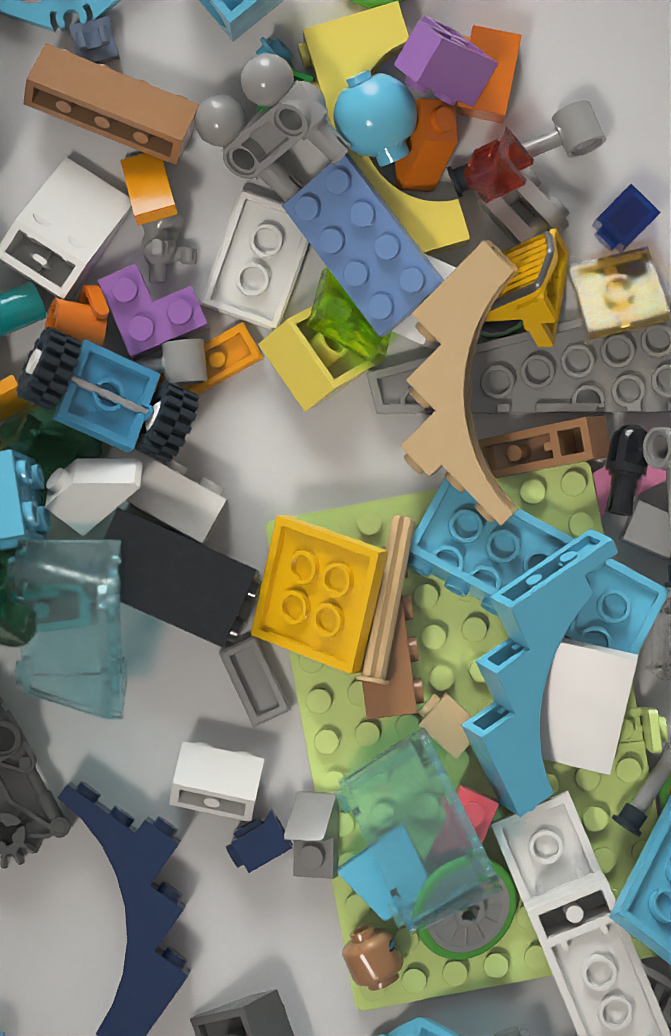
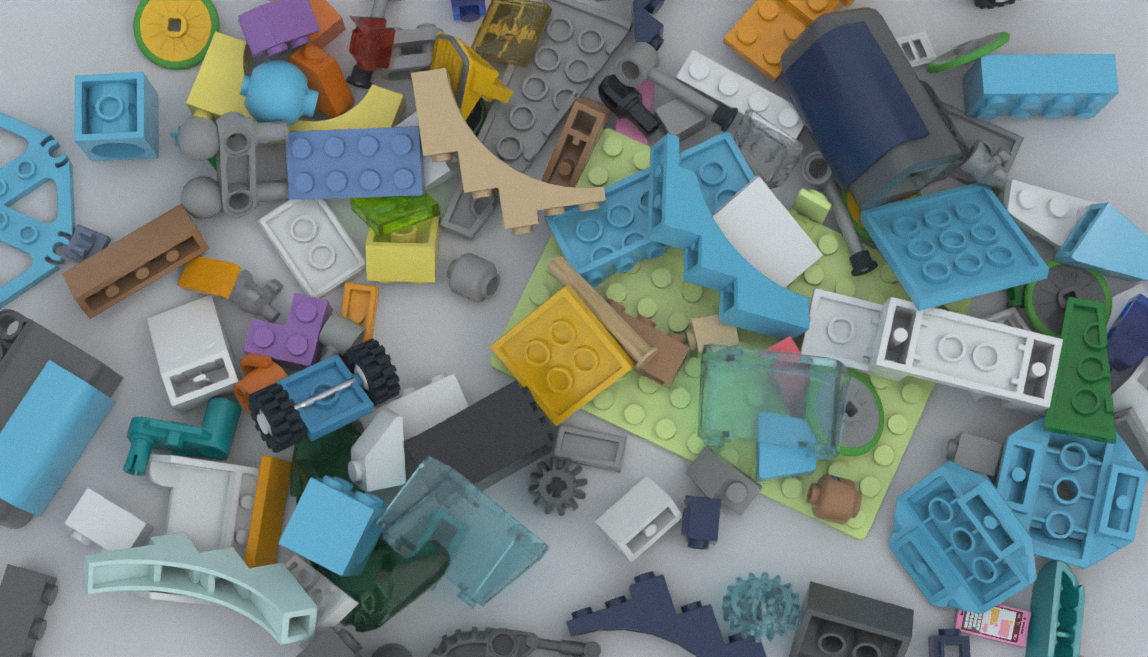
camera: 50 degrees left, 10 degrees down
(177, 679) = (549, 477): none -> dark grey gear
(200, 961) = (761, 607): none -> clear light blue gear
(337, 444) = (473, 277): none -> light grey head

